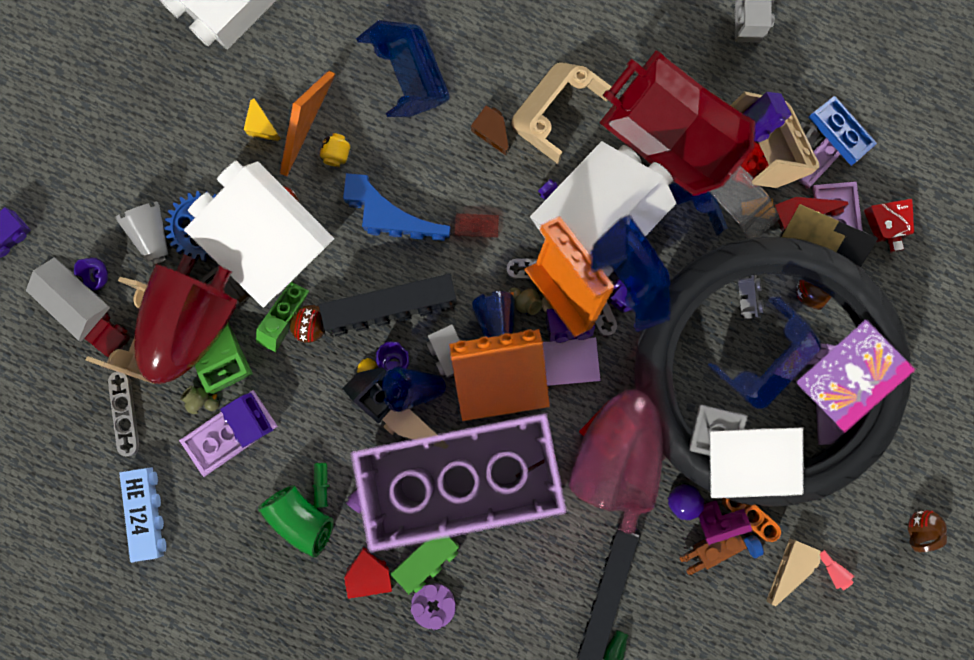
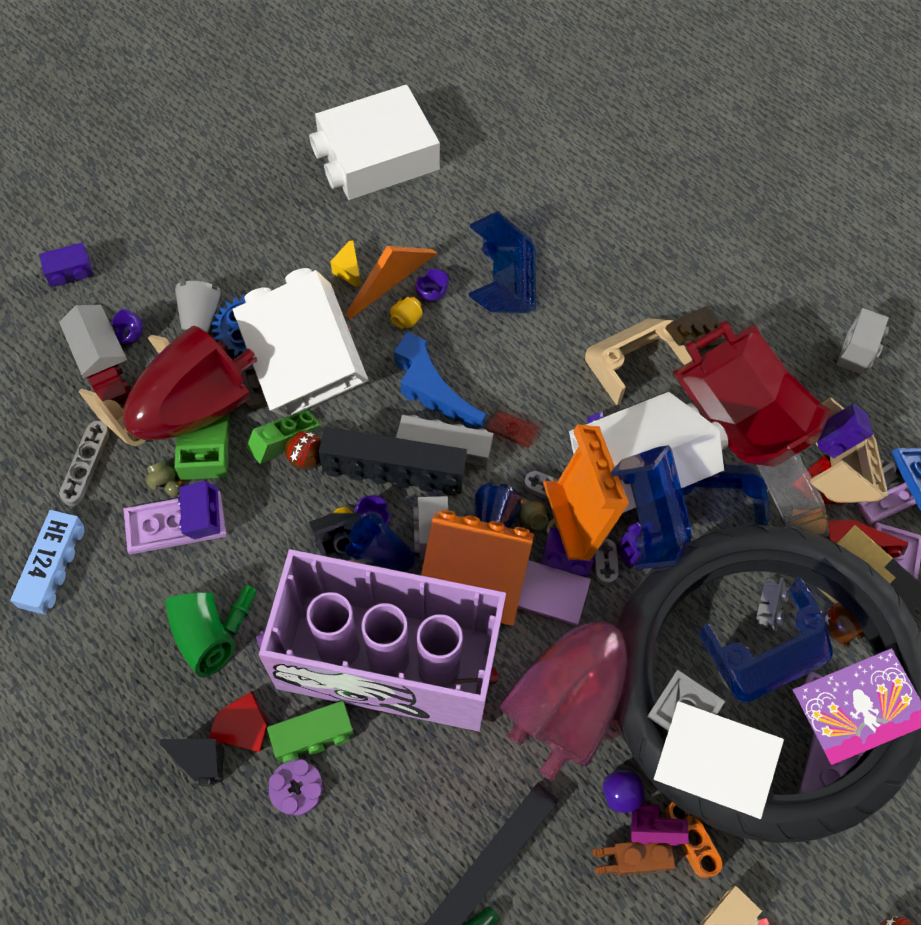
camera: 20 degrees right, 20 degrees down
(347, 621) = (198, 758): none -> black slope
(353, 109) = (434, 281): none -> dark purple hair
(423, 263) = (476, 441): none -> light grey brick
(491, 128) = (563, 348): reddish brown slope -> none
(604, 63) = (693, 327): none -> dark brown wing
(754, 546) = (684, 876): blue tile -> none

